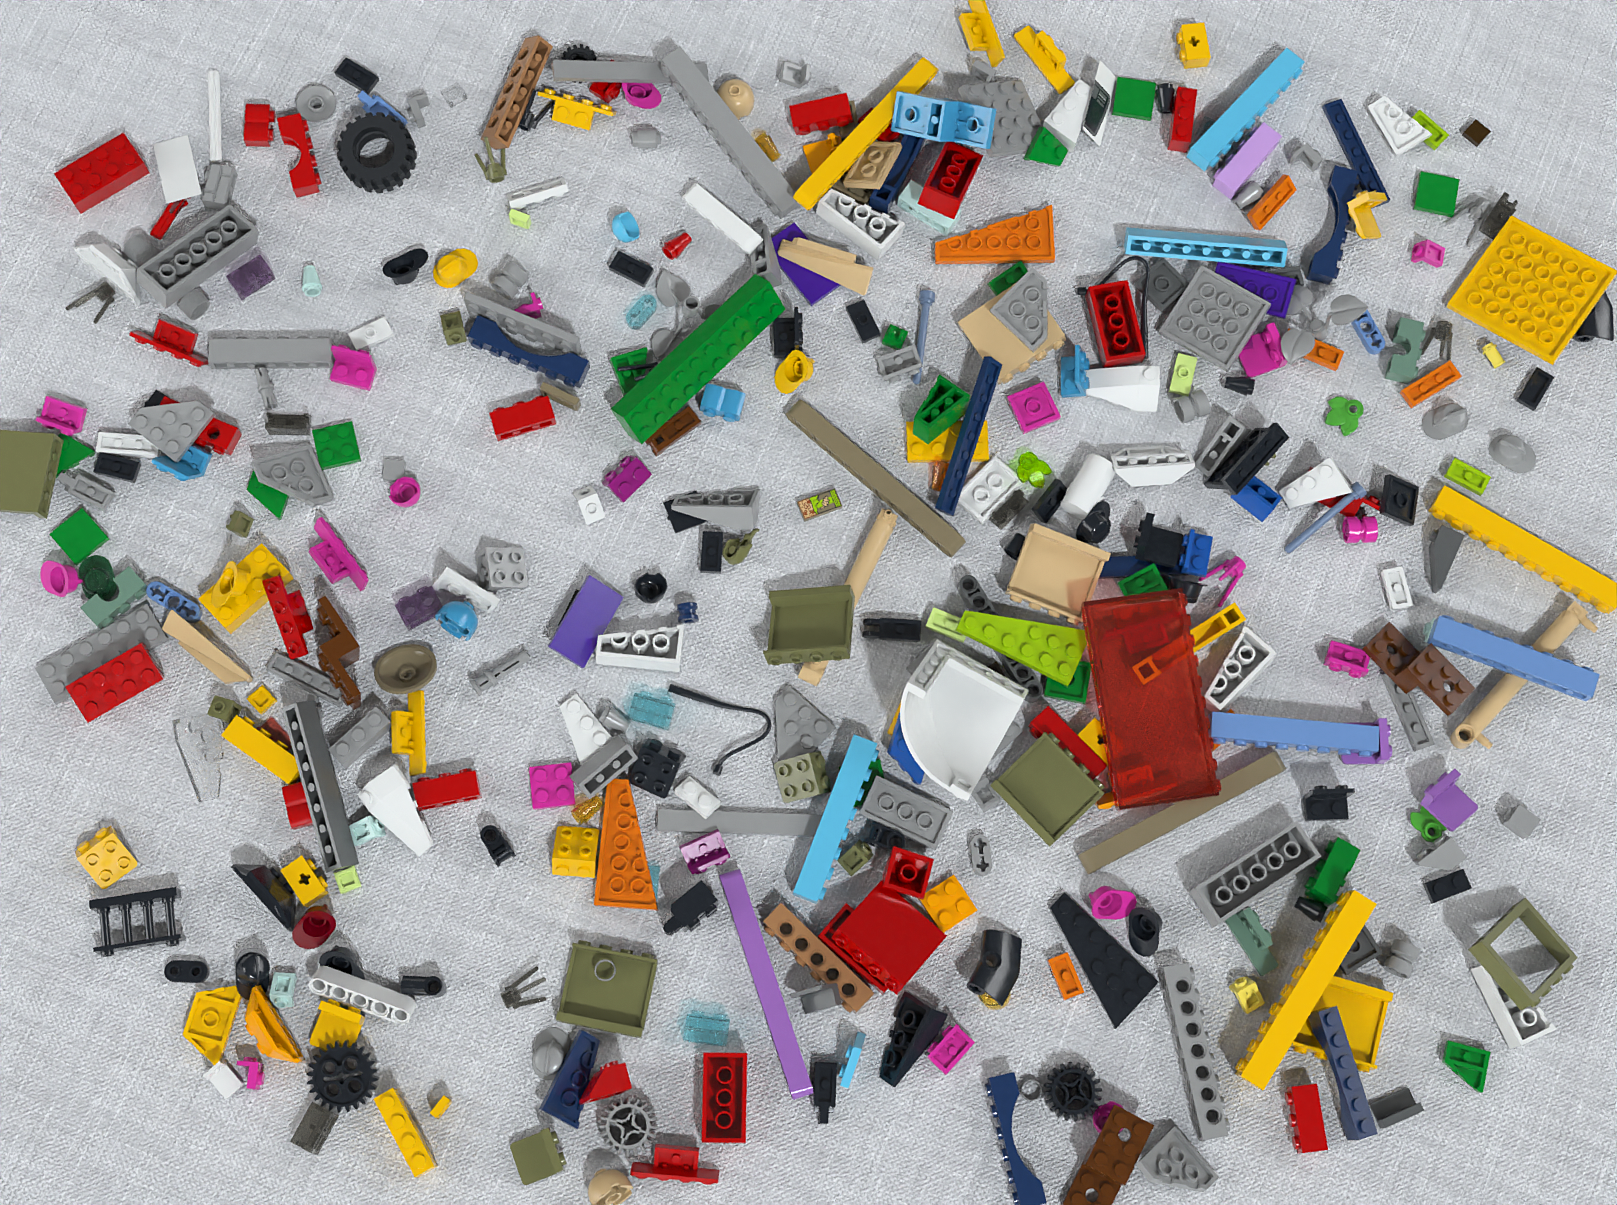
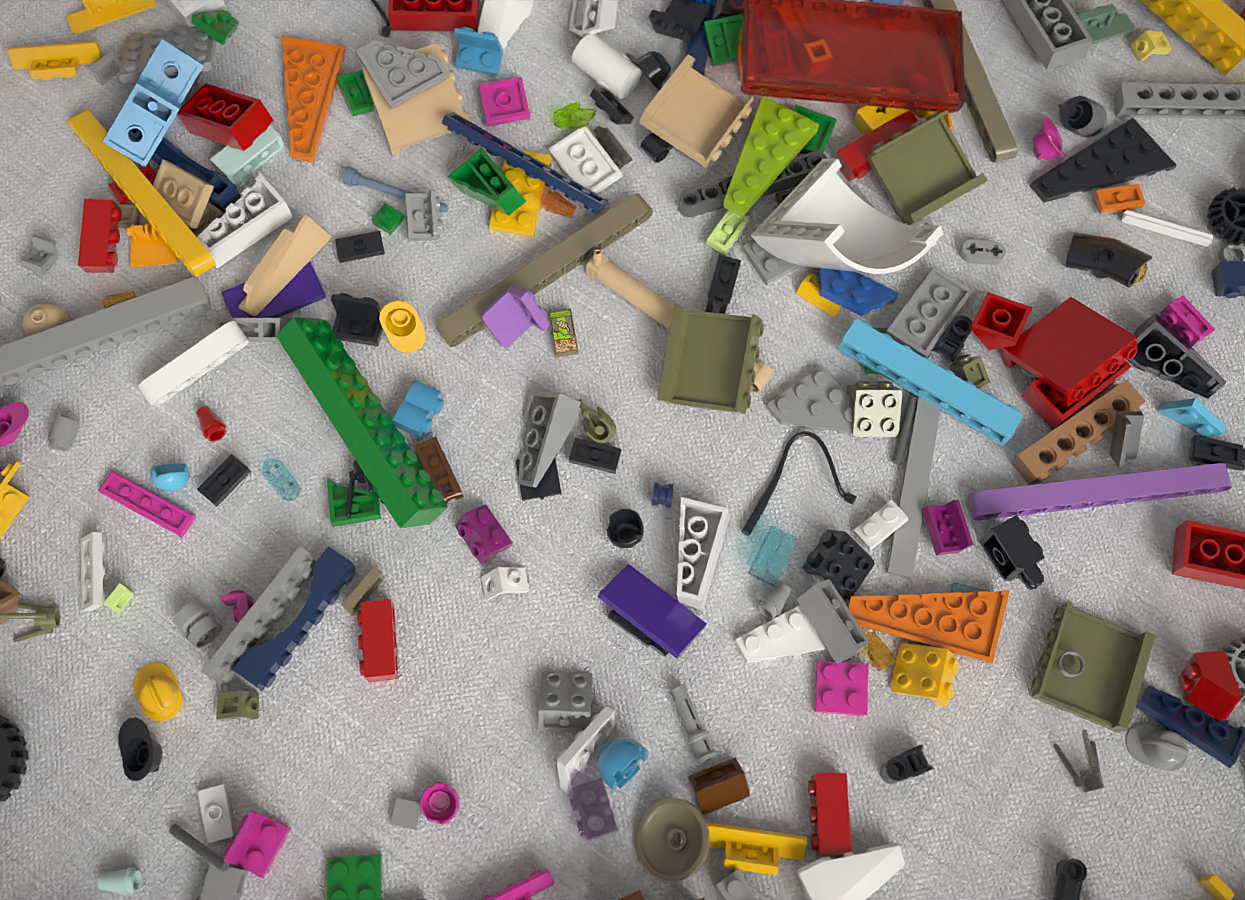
camera: 75 degrees left, 5 degrees down
(343, 327) = (198, 847): none -> dark grey bar
(455, 700) = (719, 786): none -> reddish brown panel
(601, 217) = (147, 504): none -> dark pink tile
(669, 292) = (265, 438): light grey plant -> none
(706, 1029) = (1147, 564): clear light blue brick -> none
(794, 808) = (904, 430): none -> dark grey bar
(820, 457) = (513, 315): none -> medium lavender bracket
(948, 904) = (1033, 290): light orange plate -> none
(1046, 1025) = (1167, 228): none -> white axle

